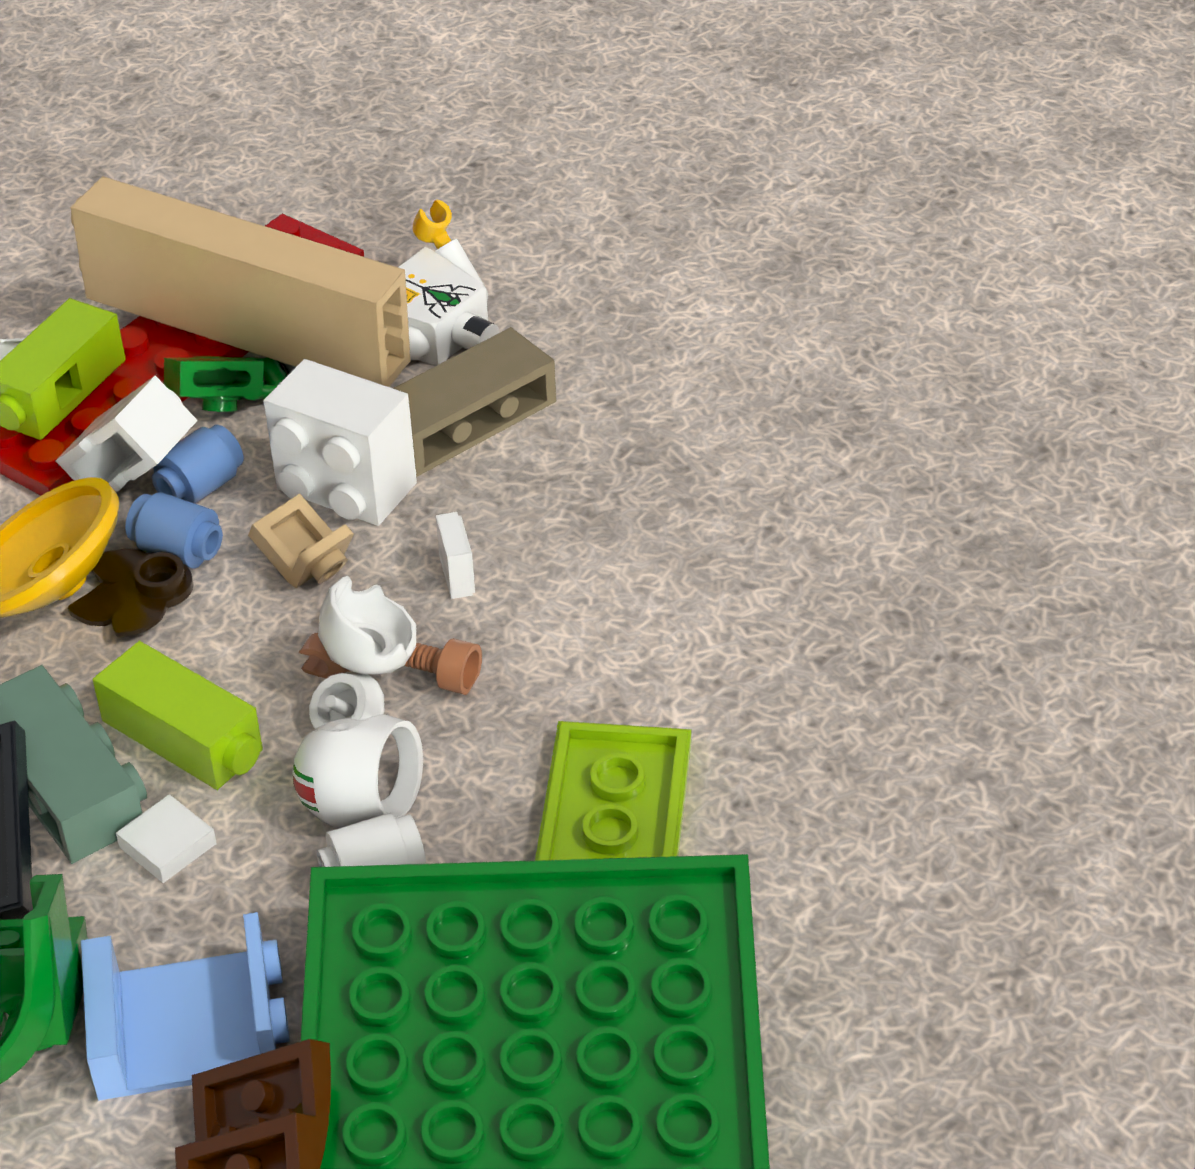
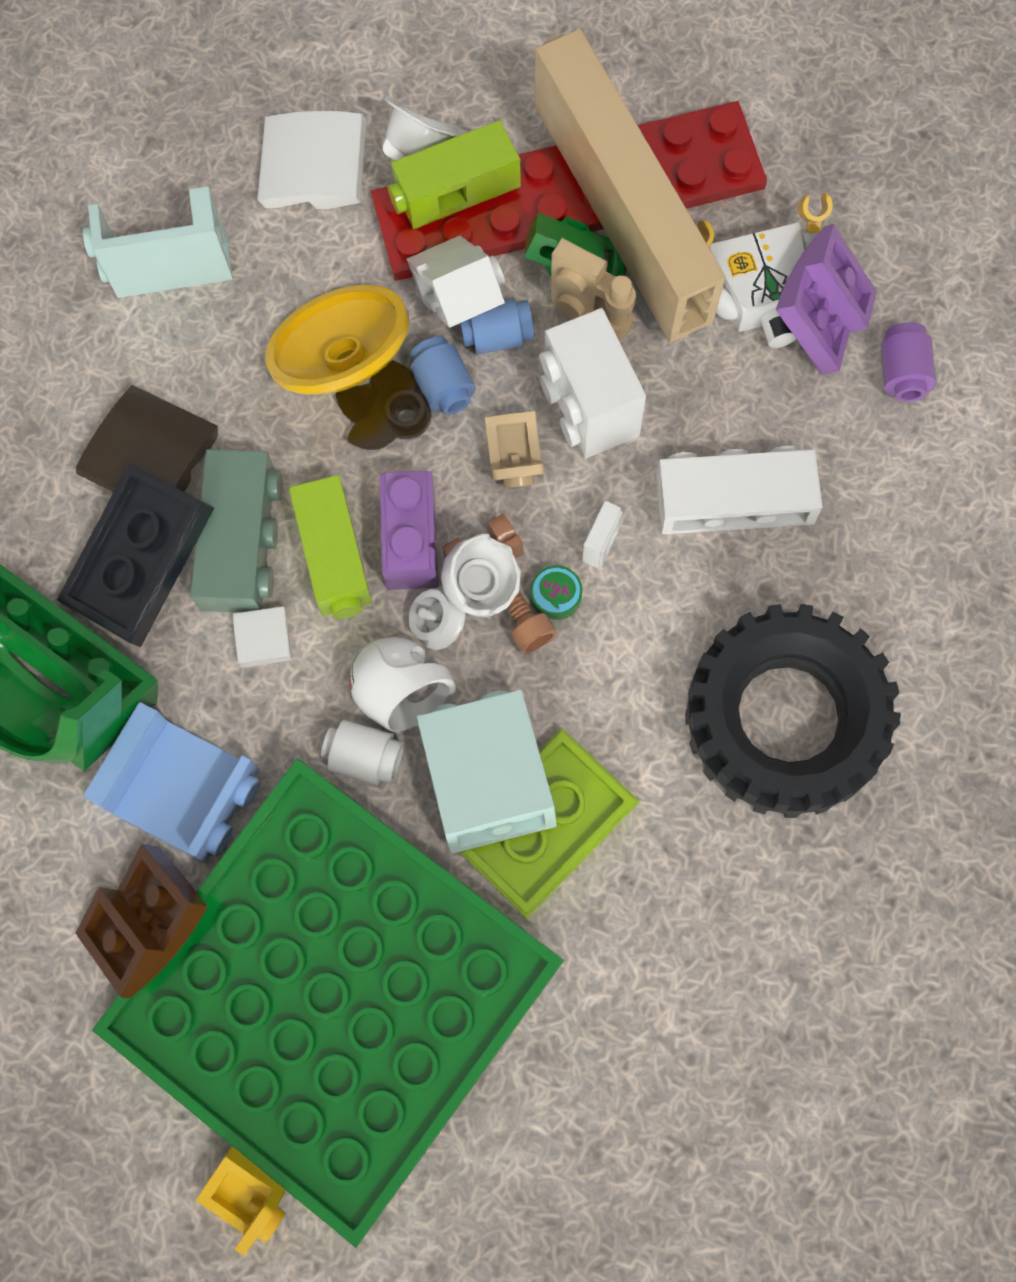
camera: 40 degrees right, 30 degrees up
(252, 653) = (408, 530): none -> medium lavender brick
(254, 366) = (584, 286): none -> tan plate
(448, 621) = (556, 592): none -> green tile
(477, 396) = (720, 389): dark tan brick -> none
(503, 283) = (826, 299): none -> medium lavender slope
(525, 772) = (486, 770): none -> light aqua panel
(553, 458) = (738, 490): none -> white brick
(616, 298) = (908, 362): none -> medium lavender brick
(764, 517) = (828, 654): none -> black tyre

